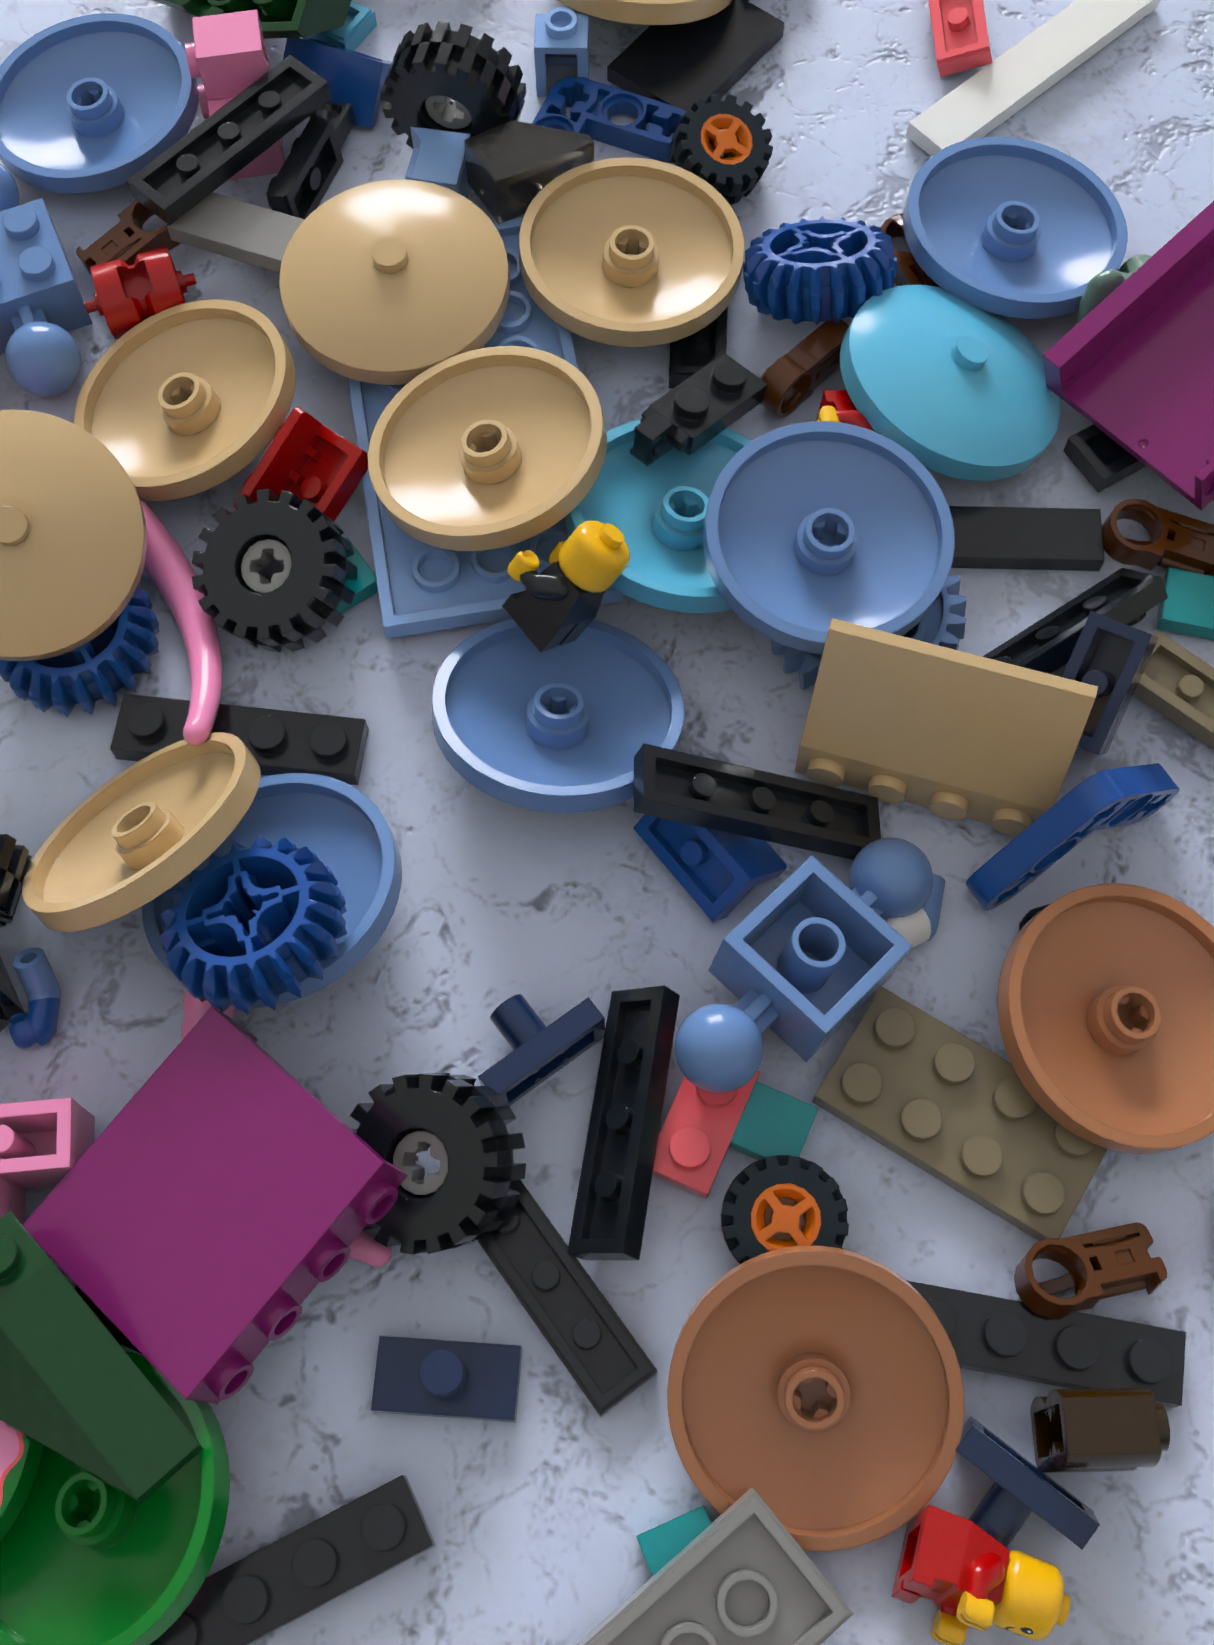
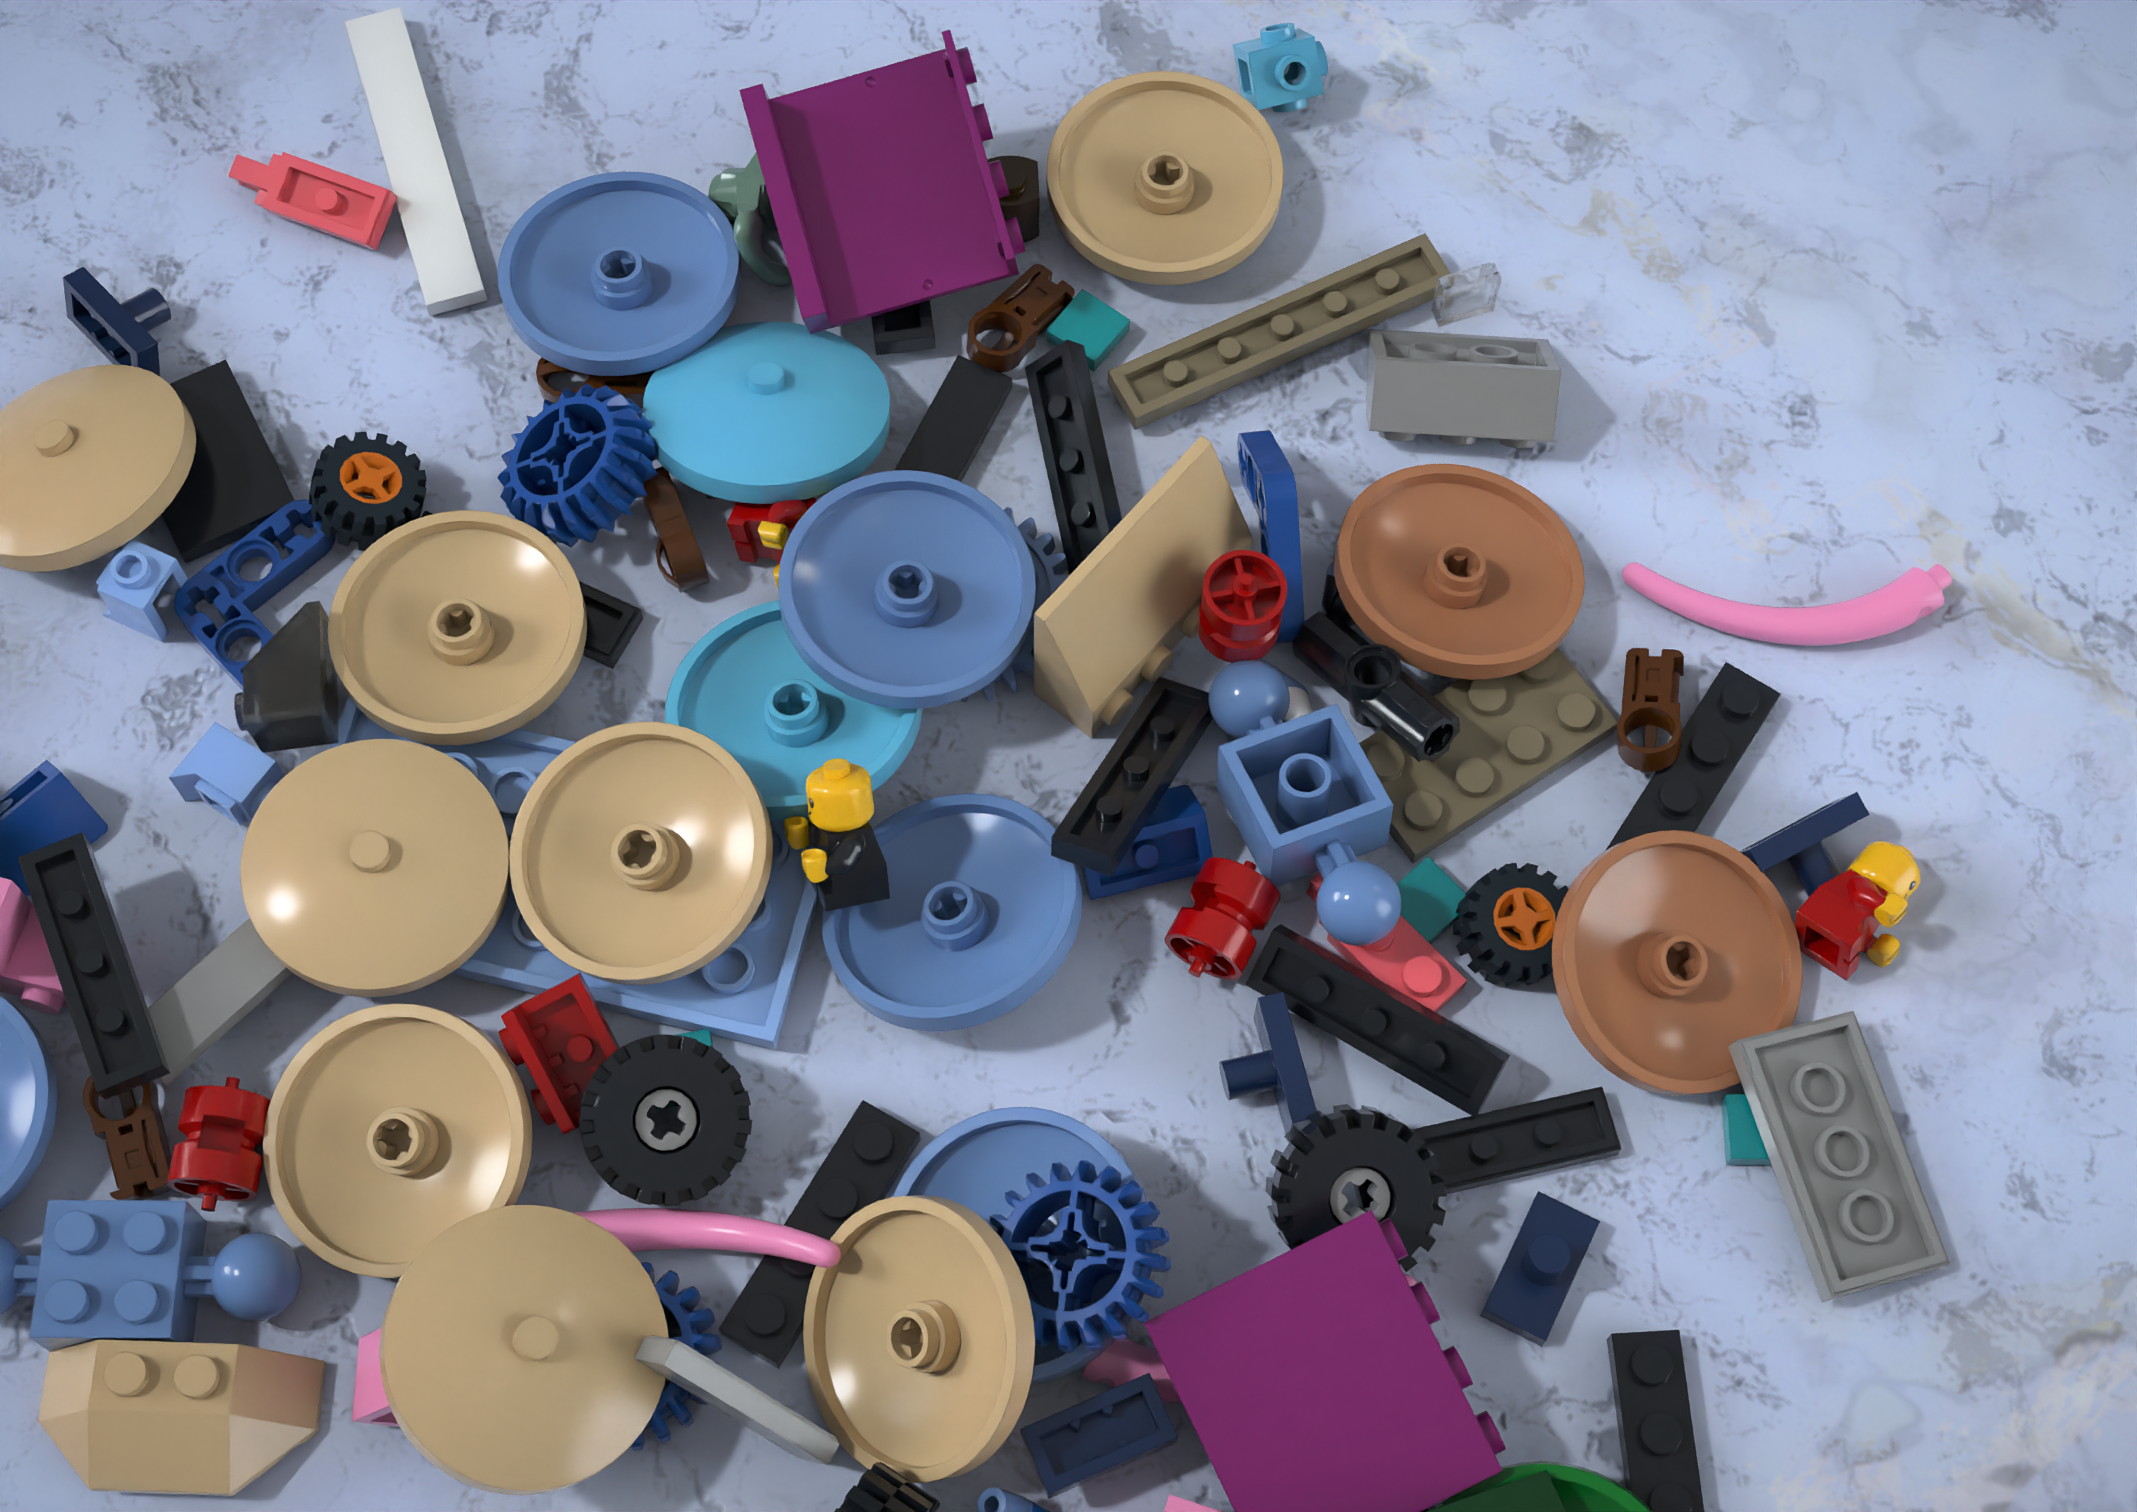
camera: 70 degrees left, 0 degrees up
(43, 716) = (737, 1399): none -> light grey tile
(116, 1019) = (1098, 1435): none -> dark blue tile
(312, 161) = (131, 901): black hinge -> none
(454, 66) = (157, 712): black bush -> none
(659, 941) = (1218, 929): none -> red wheel
(697, 409) = (682, 644): black hinge -> none
(960, 986) = (1376, 686): none -> black piece
(964, 817) = (1241, 606): none -> red wheel
(1098, 1430) = (1785, 760): dark brown brick -> none
(1114, 660) = (1140, 427): dark blue brick -> none

